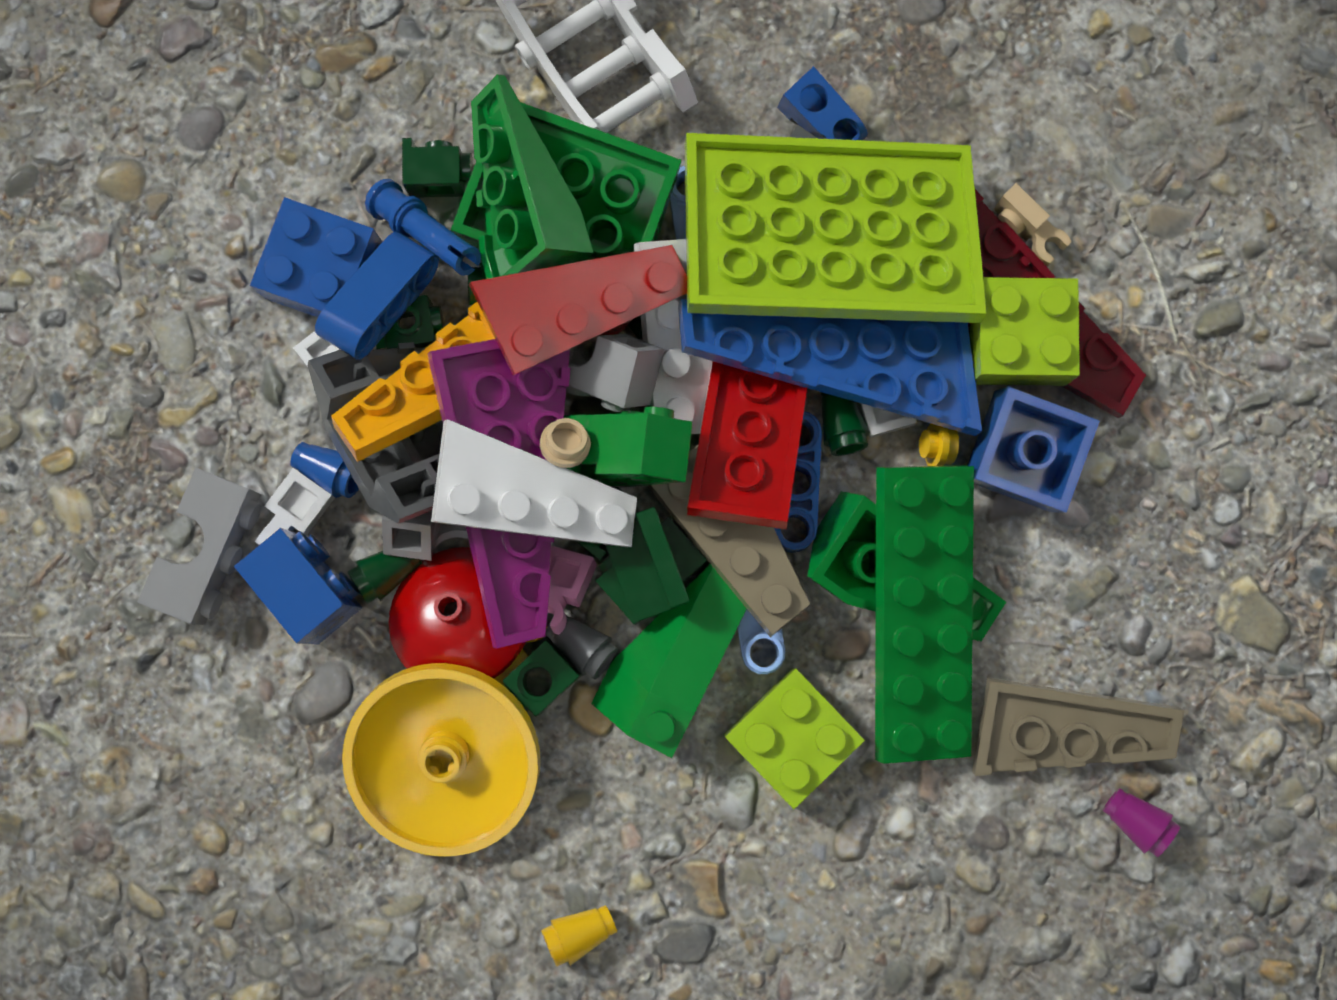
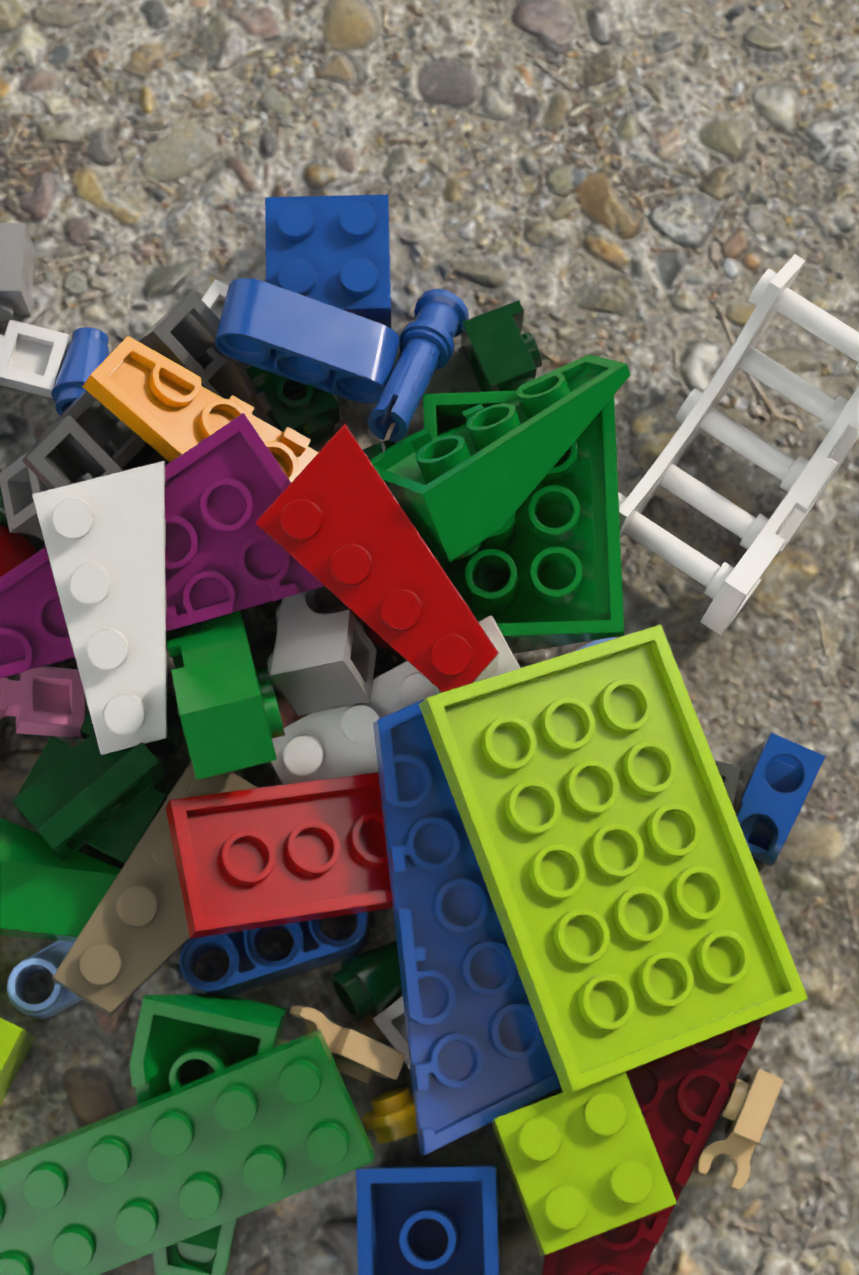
camera: 65 degrees right, 10 degrees down
(565, 443) = (195, 619): tan plate -> none
(892, 454) = (353, 1052): none -> tan plate

